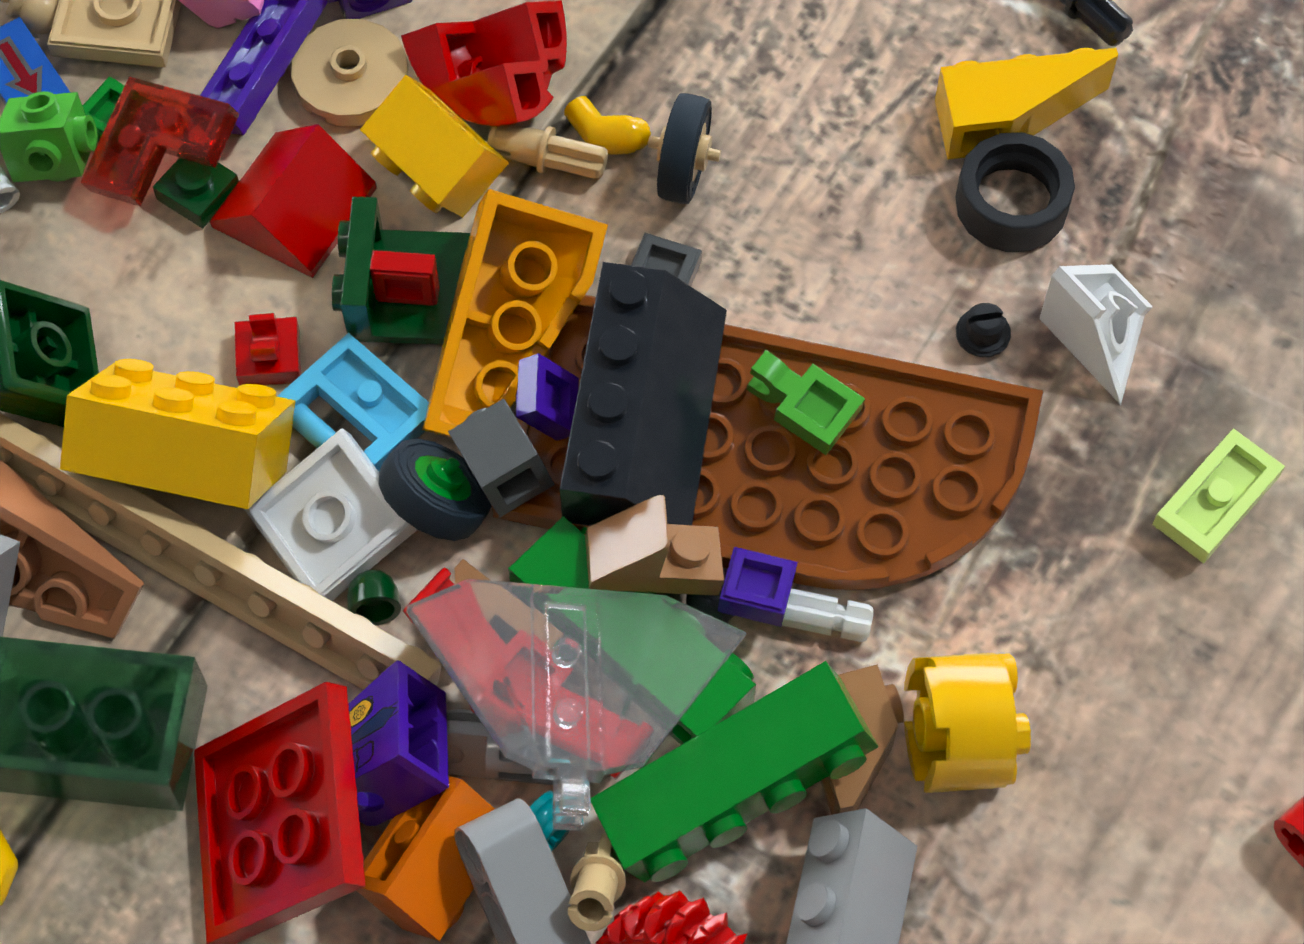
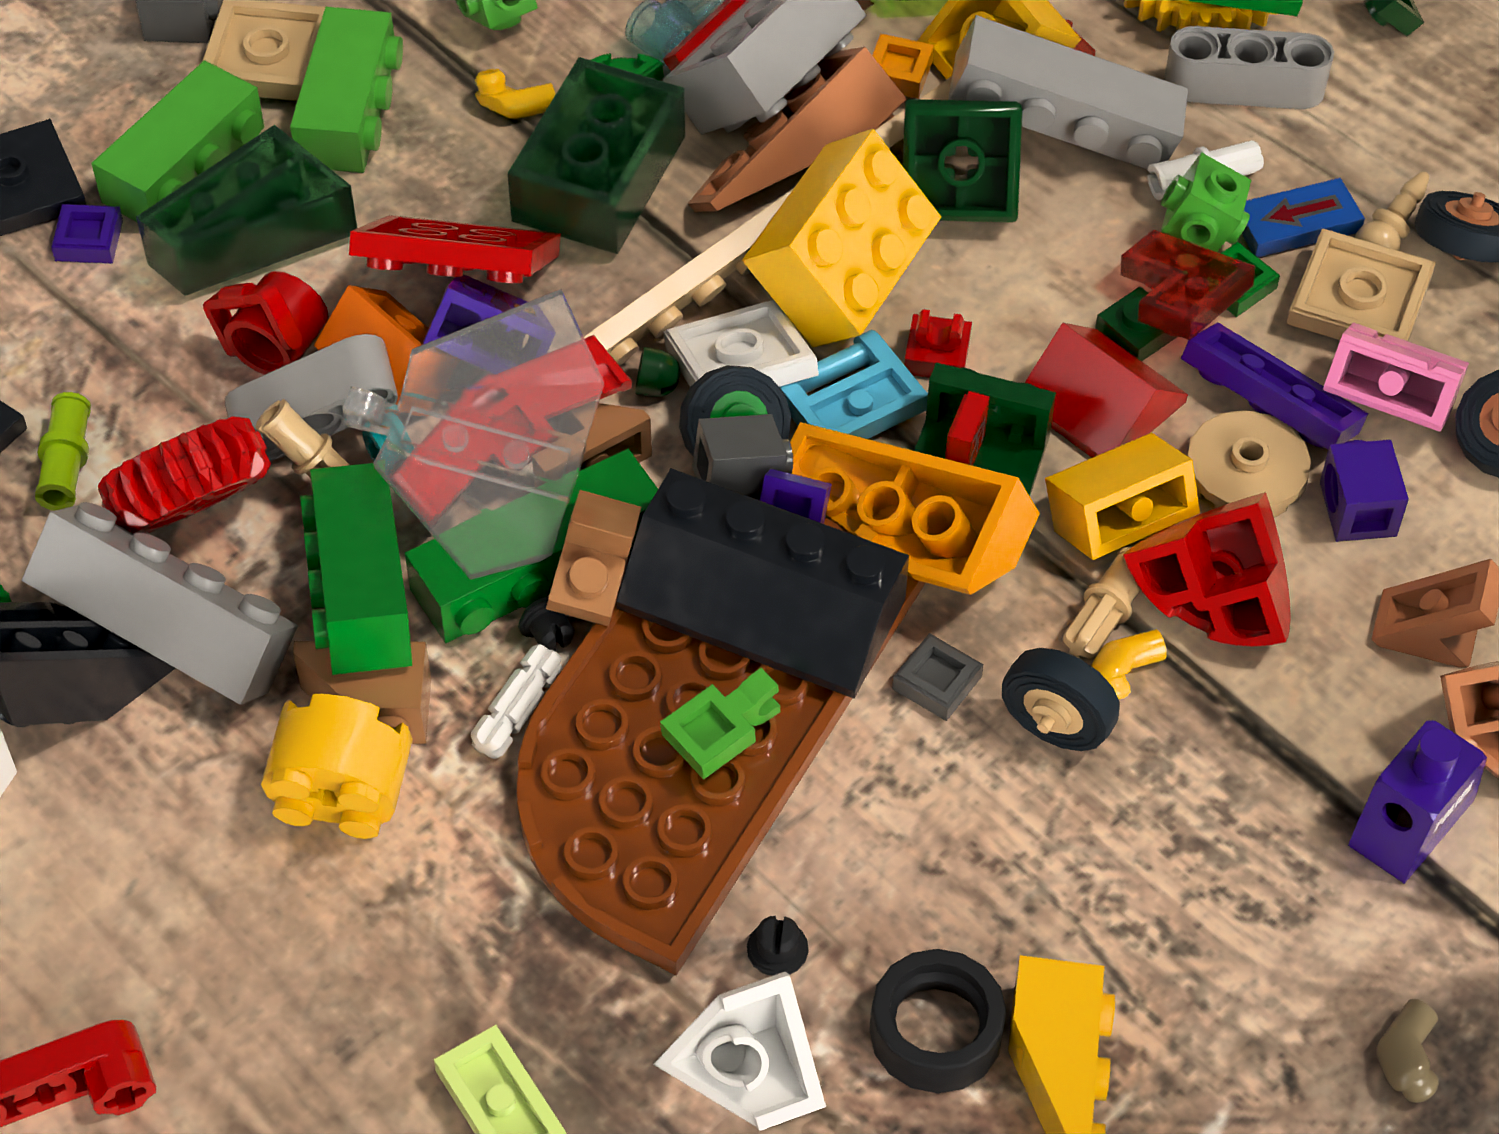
camera: 105 degrees right, 10 degrees down
(757, 586) = (543, 643): dark purple tile -> none

